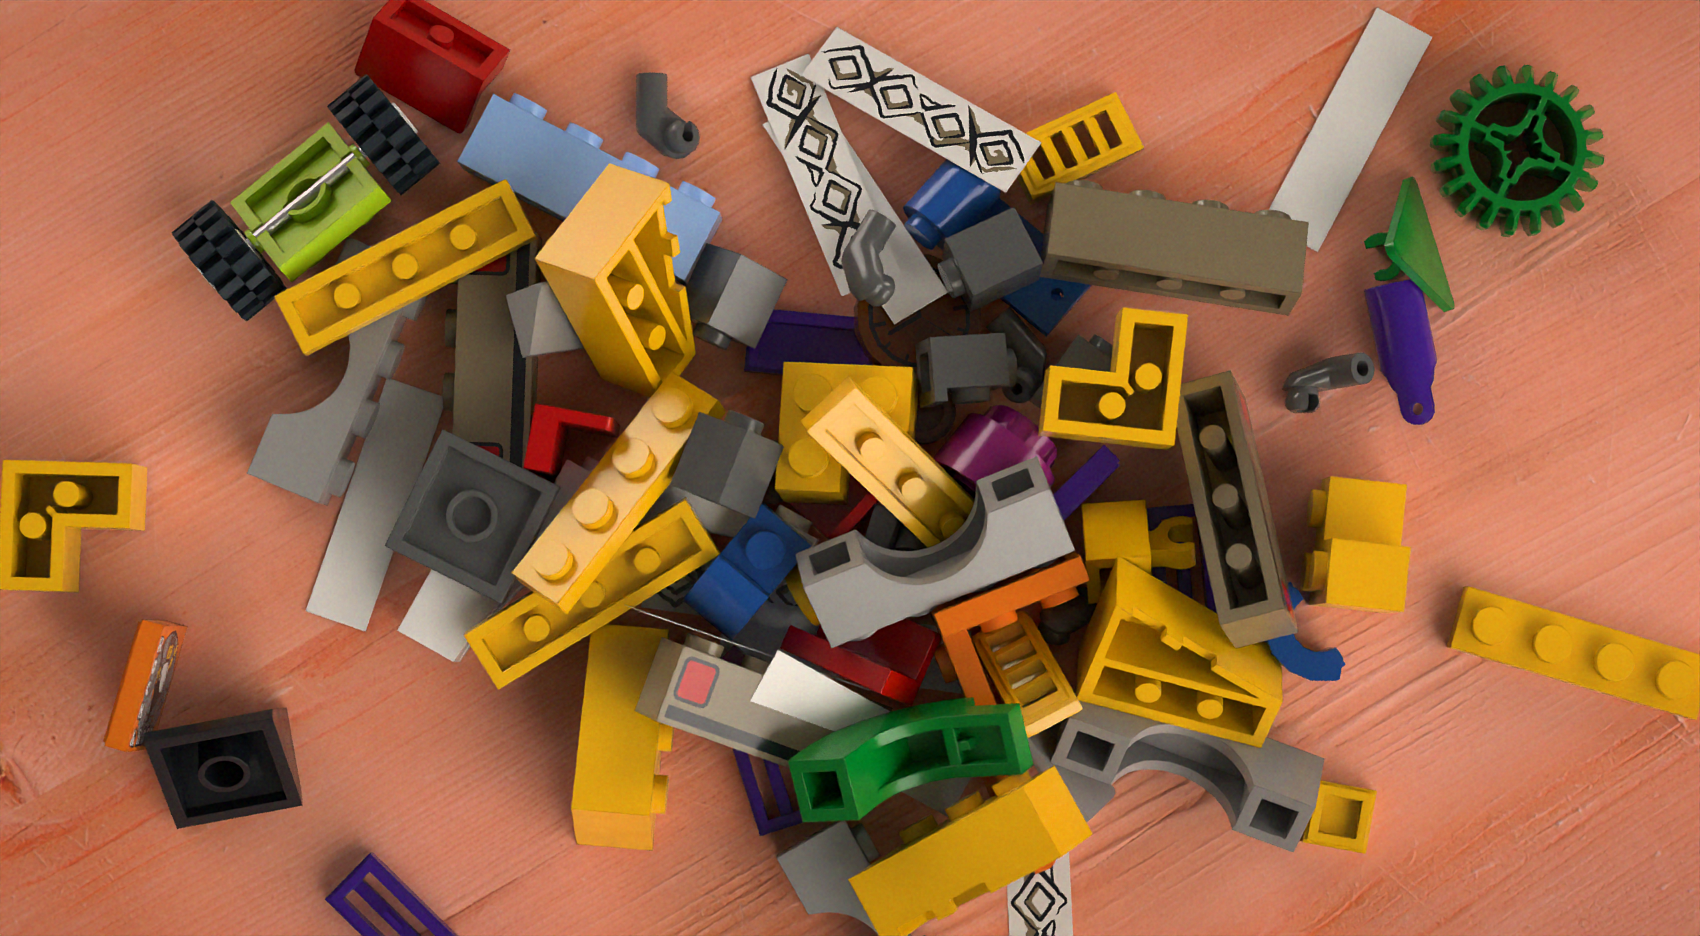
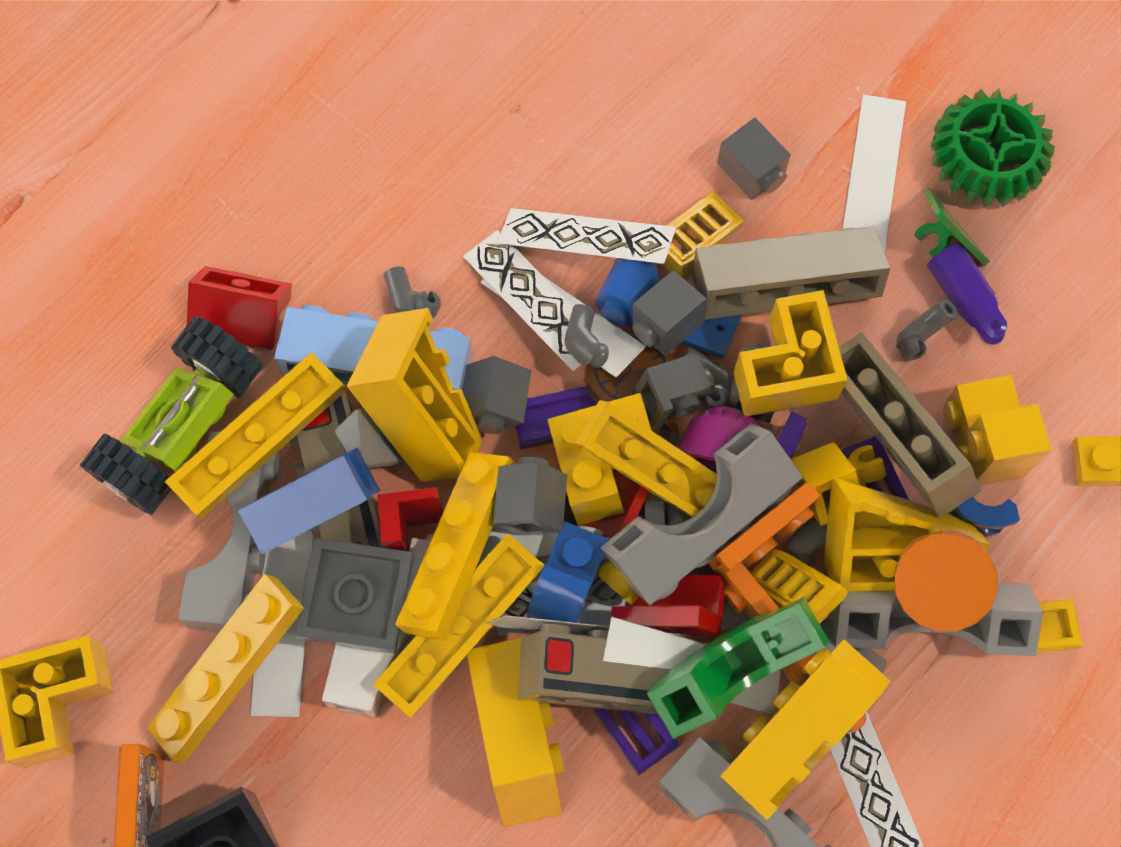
camera: 15 degrees left, 15 degrees down
(290, 552) = (225, 668): none -> yellow plate
(450, 380) = (309, 500): none -> piece
(1186, 67) = (754, 159): none -> dark grey brick
(1207, 733) = (945, 581): none -> orange tile

